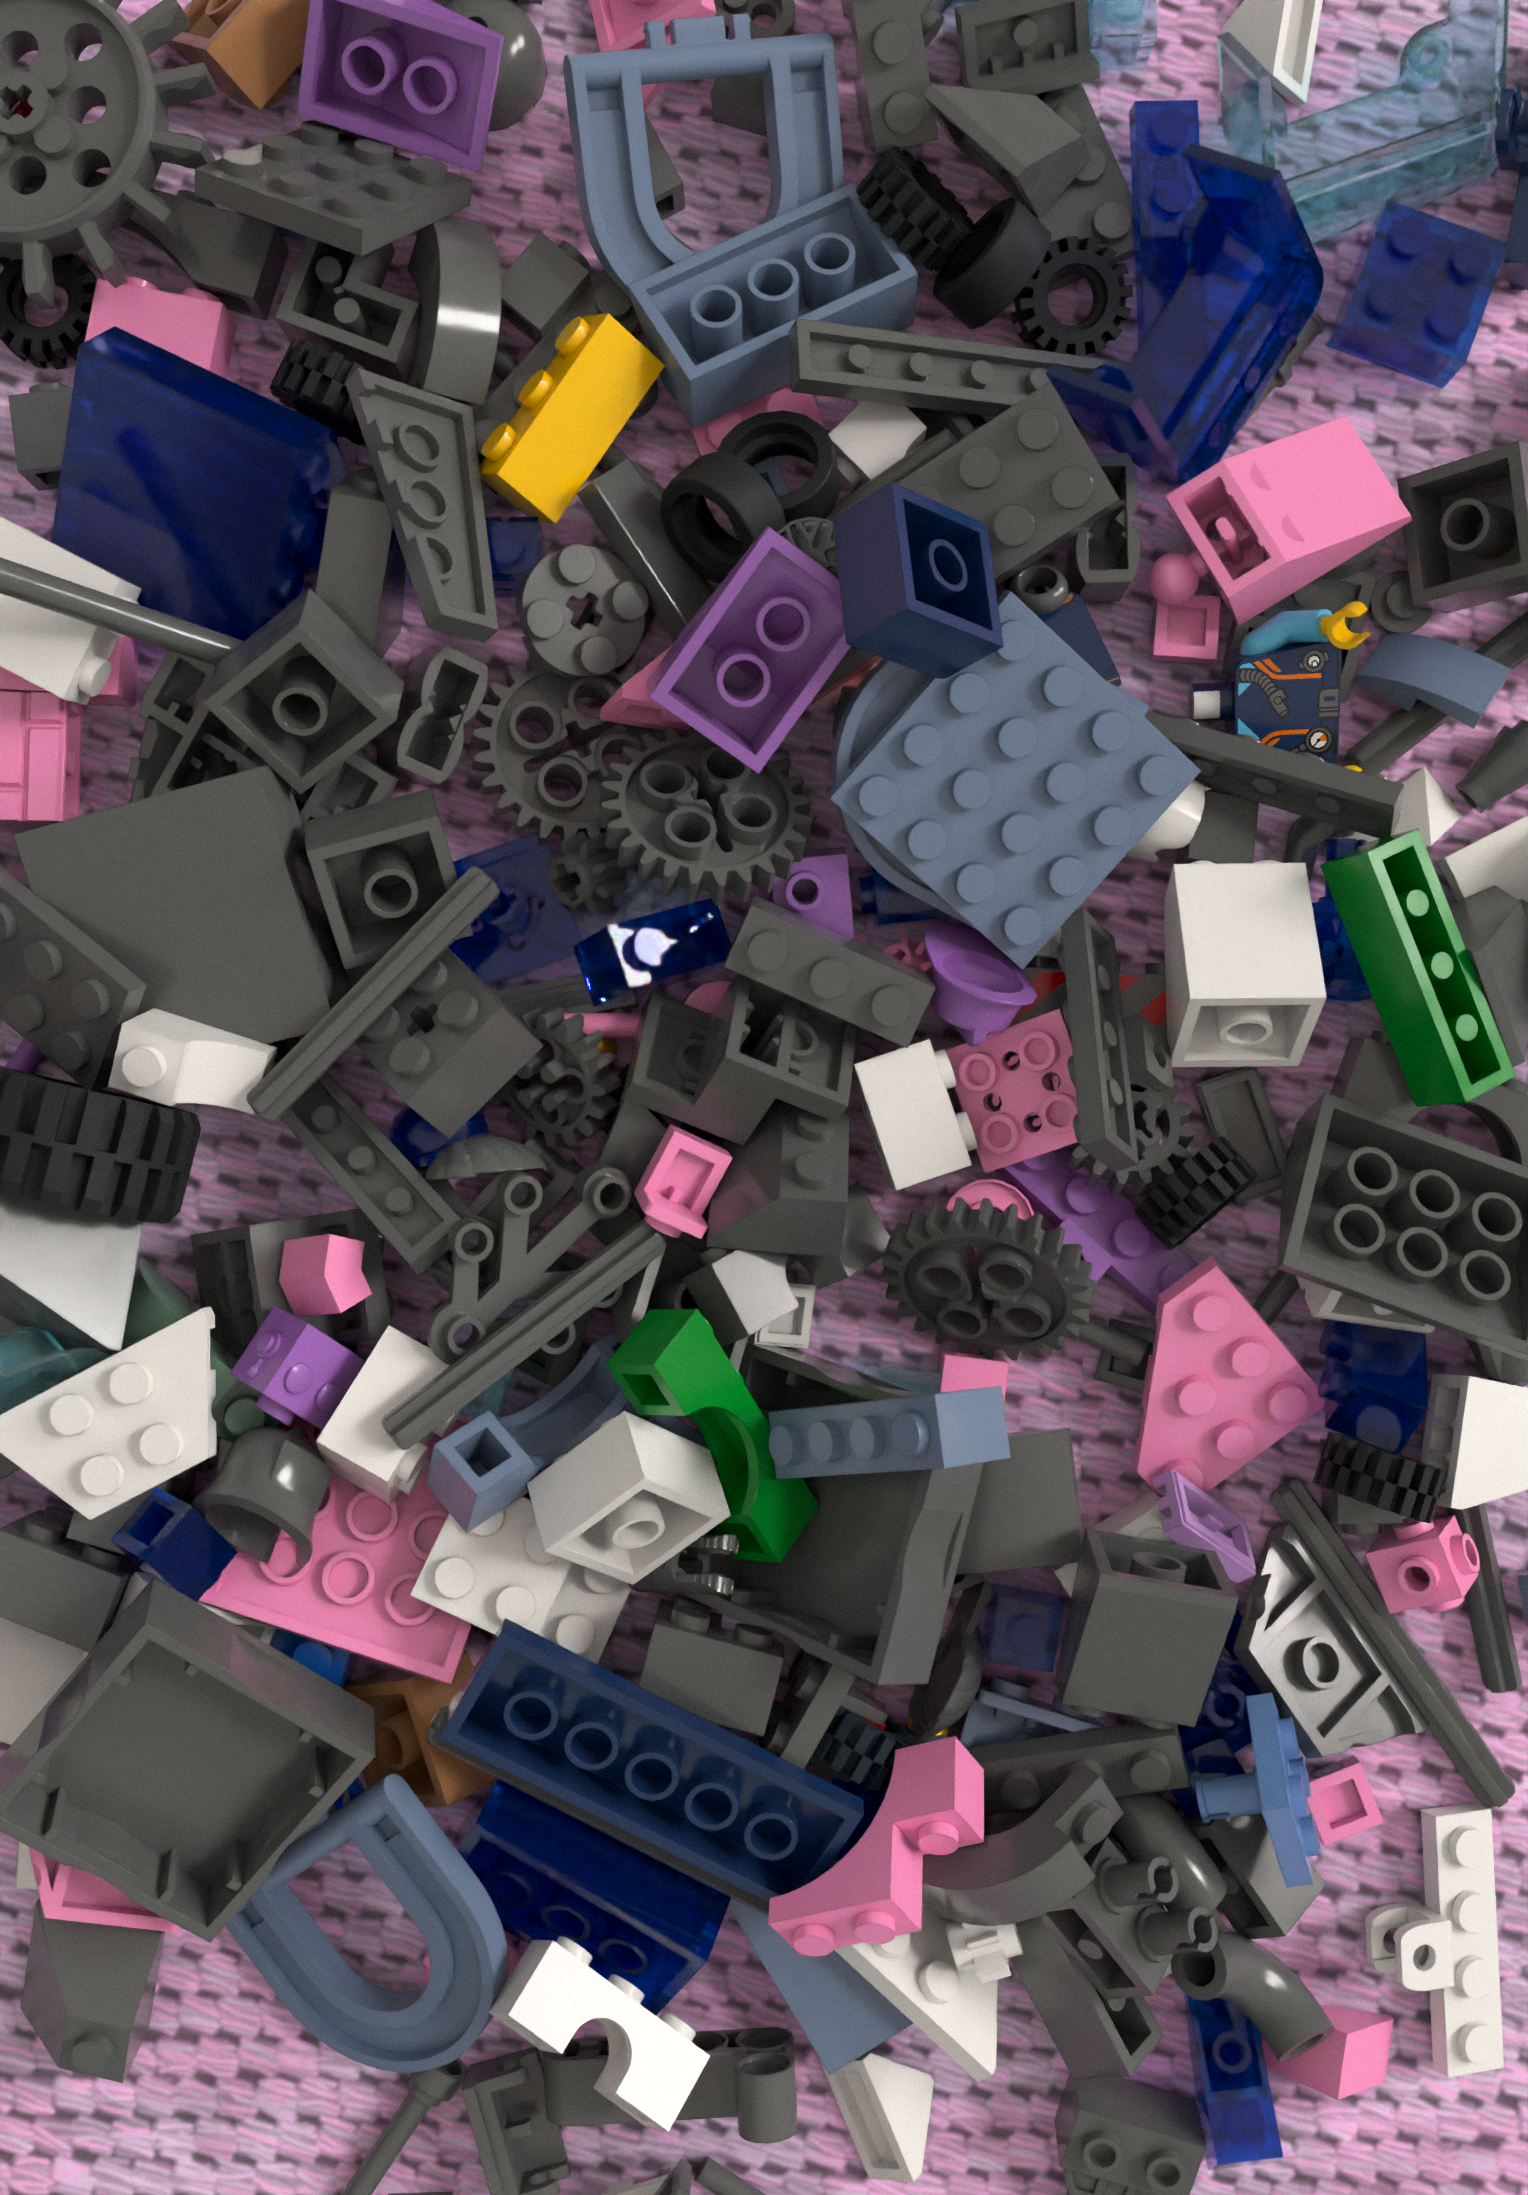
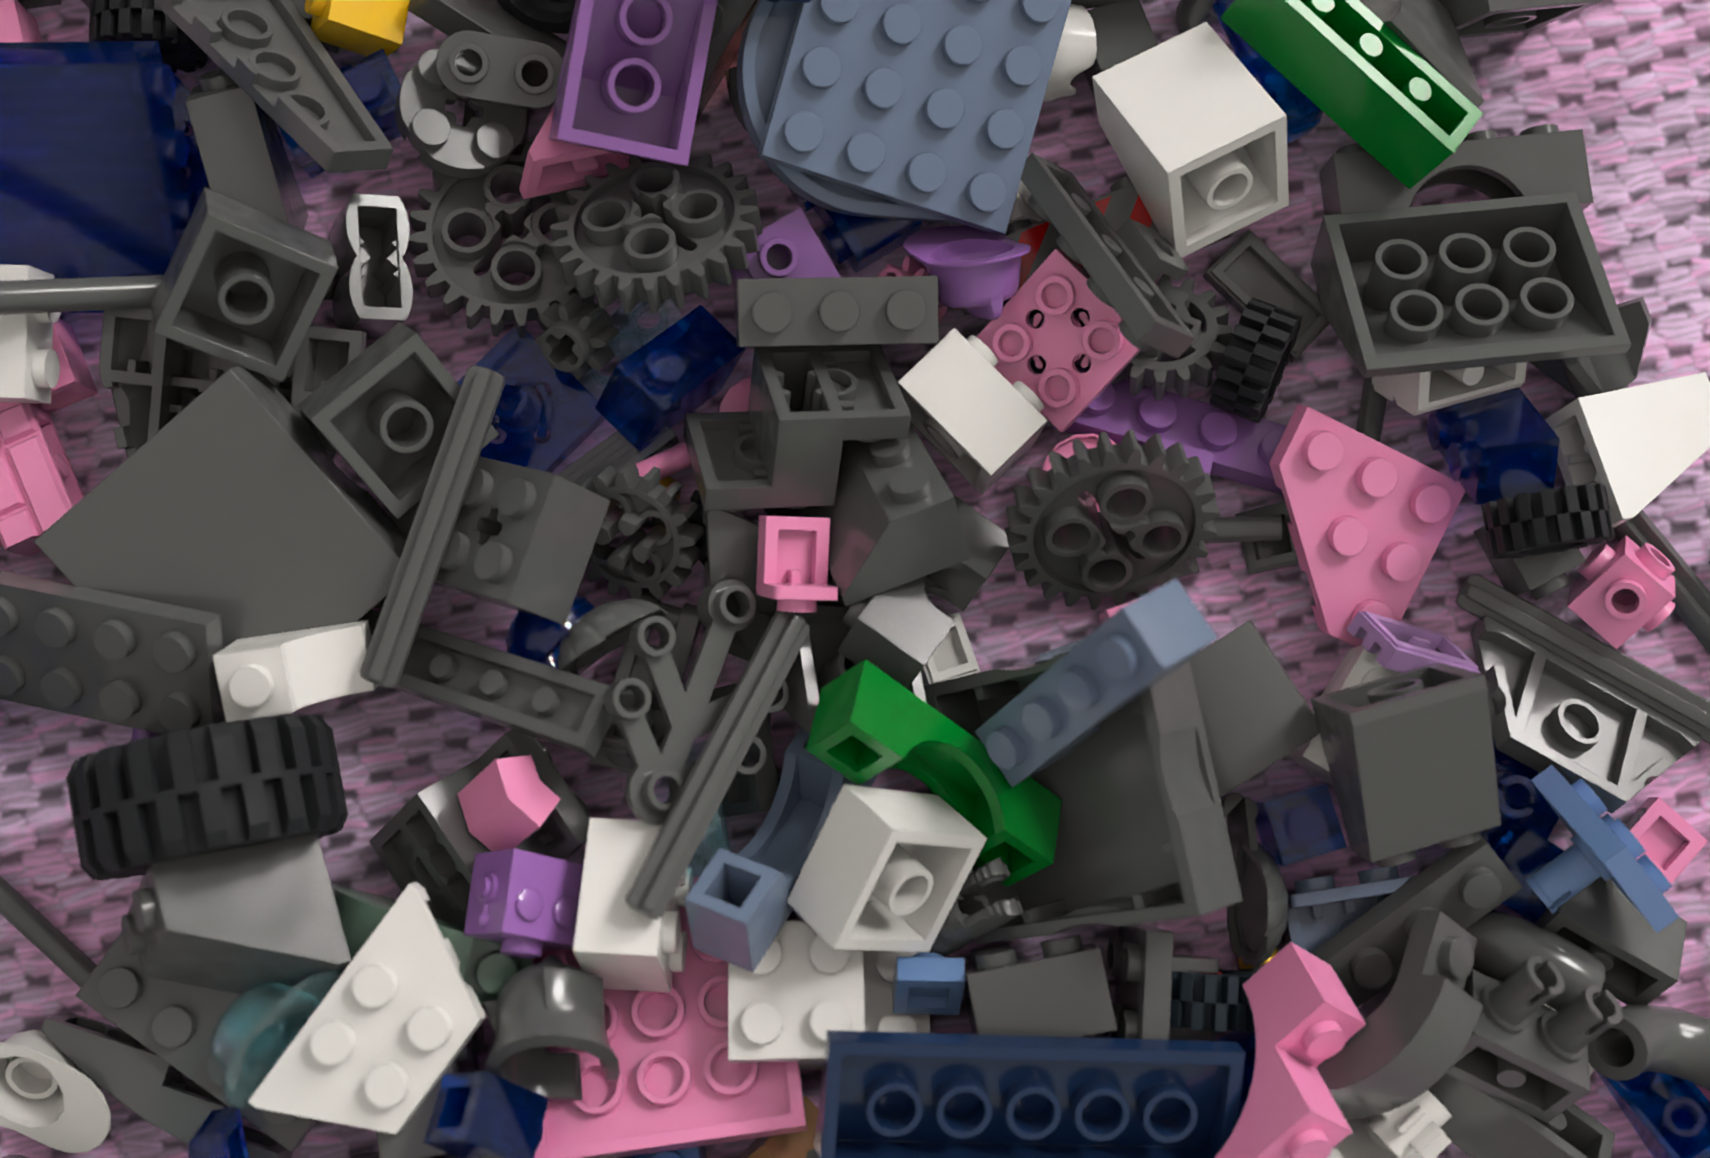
camera: 30 degrees left, 5 degrees down
(620, 1610) = (928, 984): none -> medium blue plate
(636, 593) = (501, 69): none -> dark grey plate

